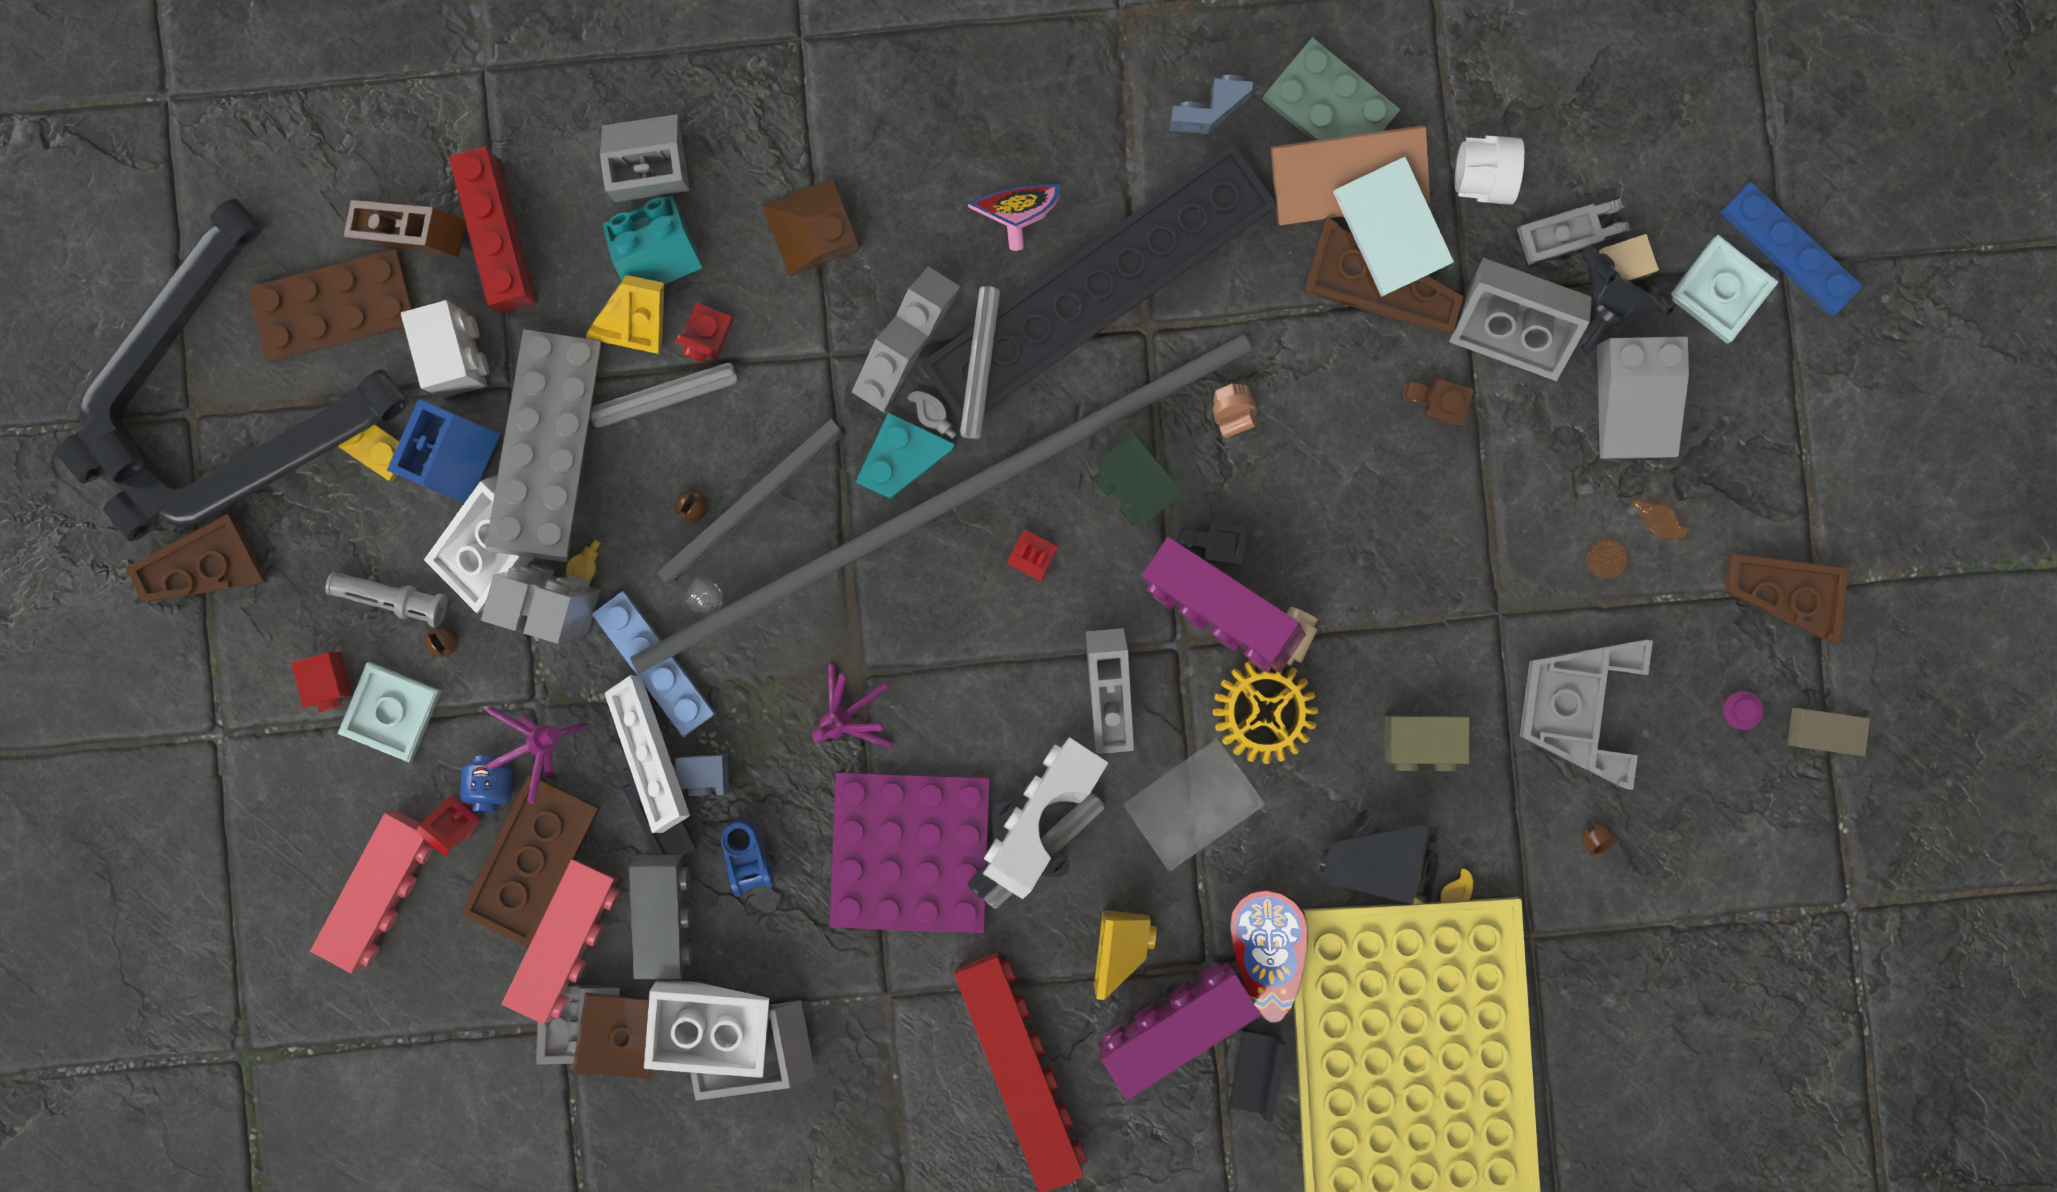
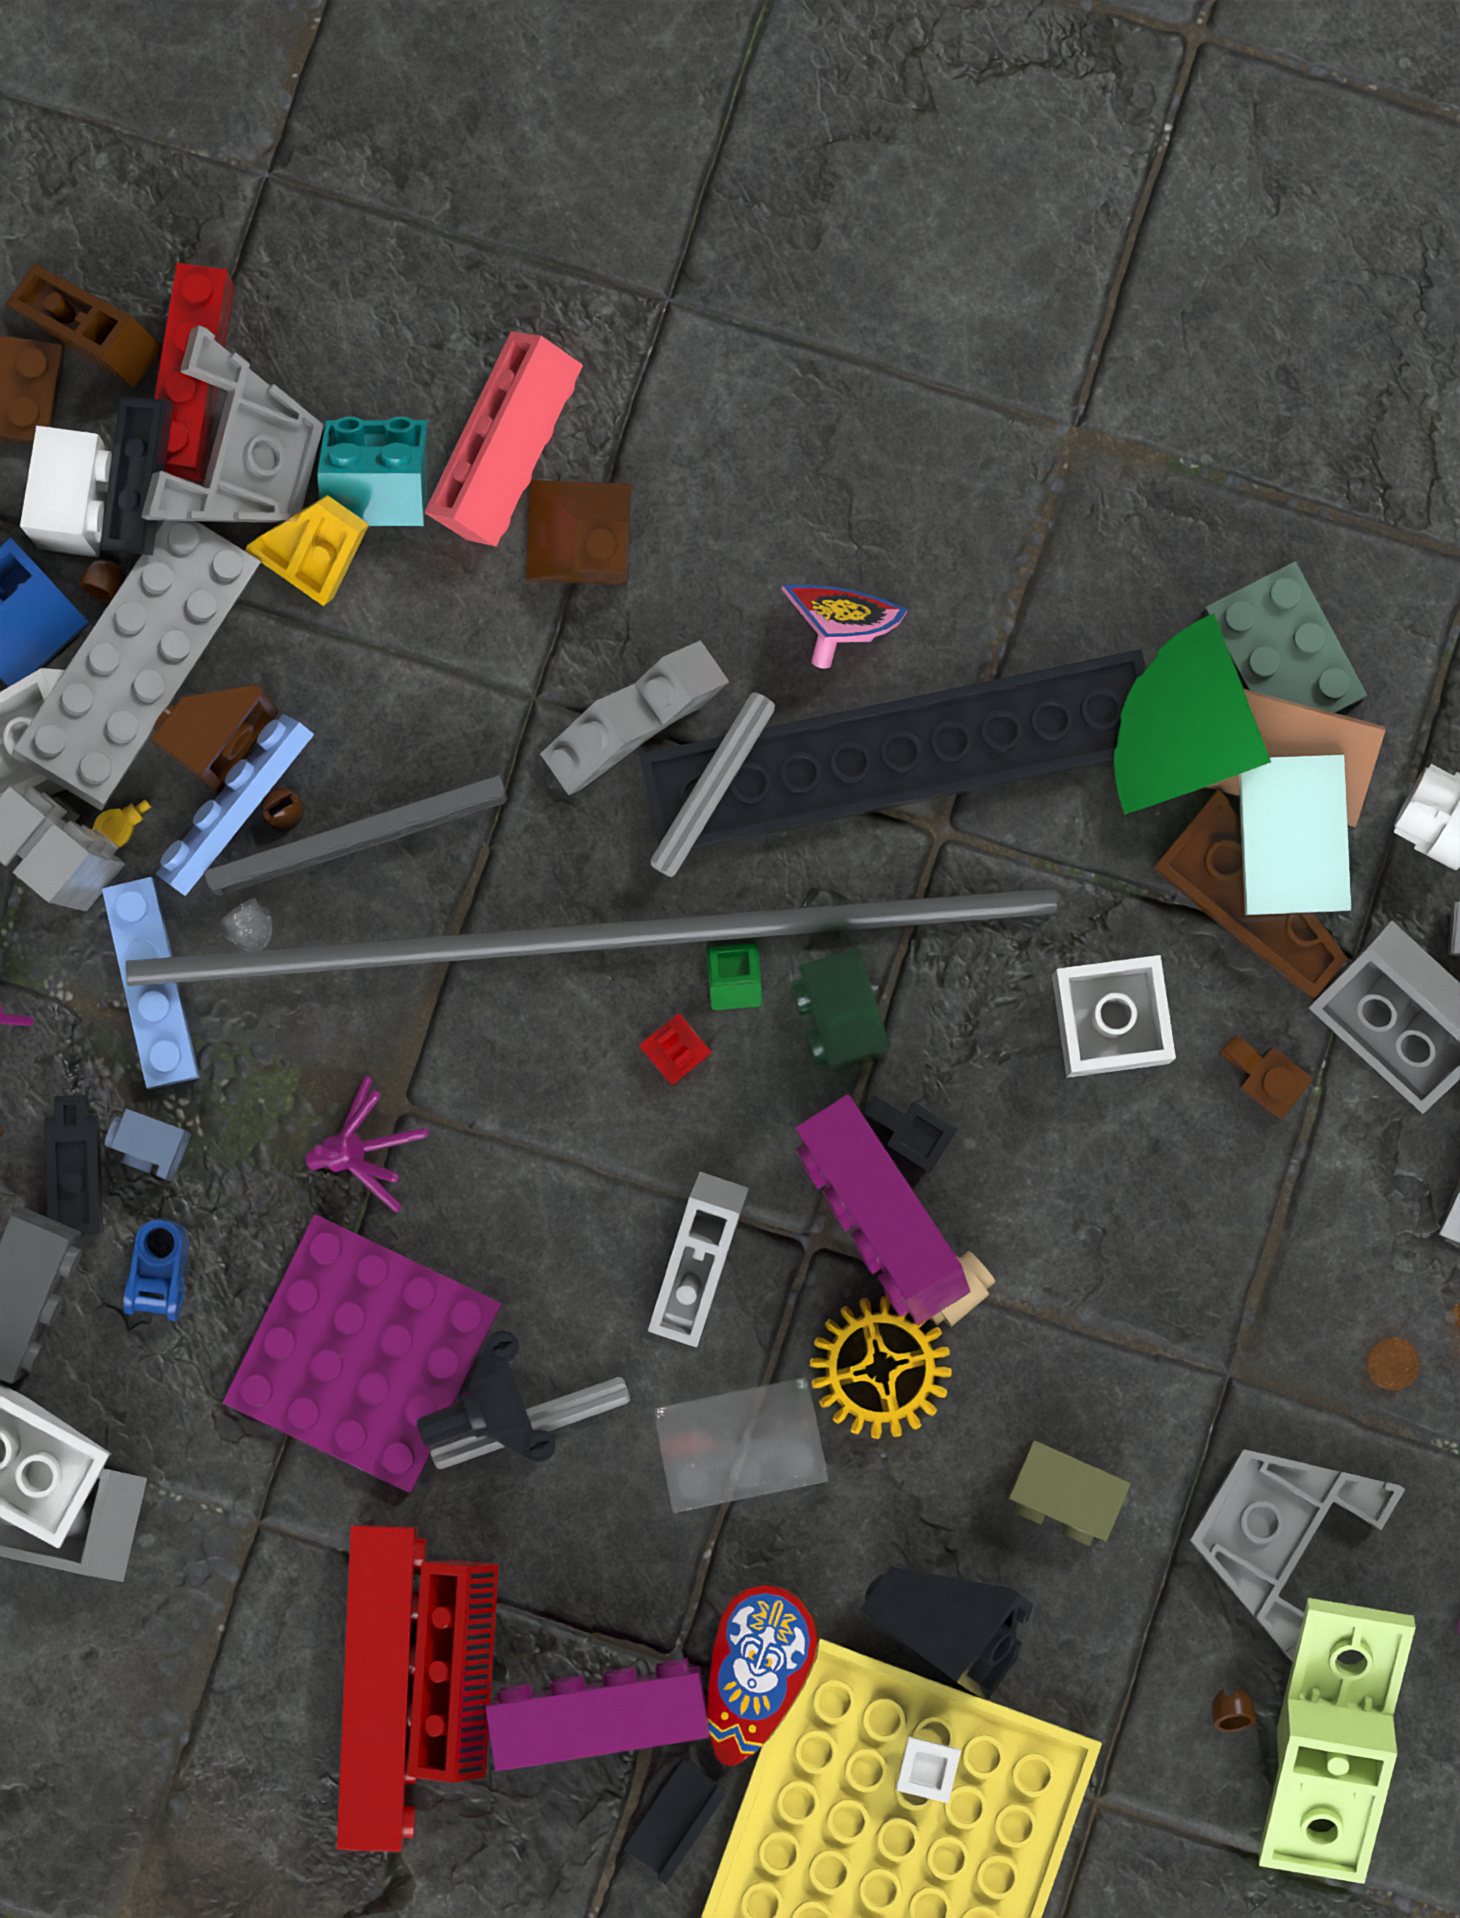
camera: 25 degrees right, 5 degrees down
(487, 317) = (137, 453): none -> black tile
(496, 401) = (102, 580): none -> reddish brown hinge
(565, 266) = (258, 454): none -> light grey wing
(620, 472) = (214, 730): none -> reddish brown slope
(643, 158) = (411, 363): light grey slope -> none
(646, 754) = (93, 1088): white plate -> none
(659, 507) = (245, 788): none -> light blue plate
(663, 395) = (308, 659): light grey axle -> none
(705, 333) = (392, 606): red bracket -> none
(731, 183) = (504, 438): none -> coral brick
(900, 456) = (565, 858): teal wing -> none
(932, 413) = (627, 822): light grey piece -> none
(1021, 856) = (498, 1412): white arch -> none
(1050, 487) = (734, 976): none -> green slope
(1065, 1040) = (453, 1670): none -> red brick
(1121, 948) = (573, 1584): yellow slope -> none
(1226, 97) = (1158, 591): sand blue slope -> none
(1234, 409) = (1003, 976): nougat piece -> none
(1288, 179) = (1185, 722): none -> green brick
(1322, 404) = (1113, 1016): none -> white brick
(1414, 968) = (928, 1769): none -> white plate
(1458, 889) = (1030, 1699): yellow piece -> none
(1679, 829) = (1336, 1740): none -> yellowish green bracket

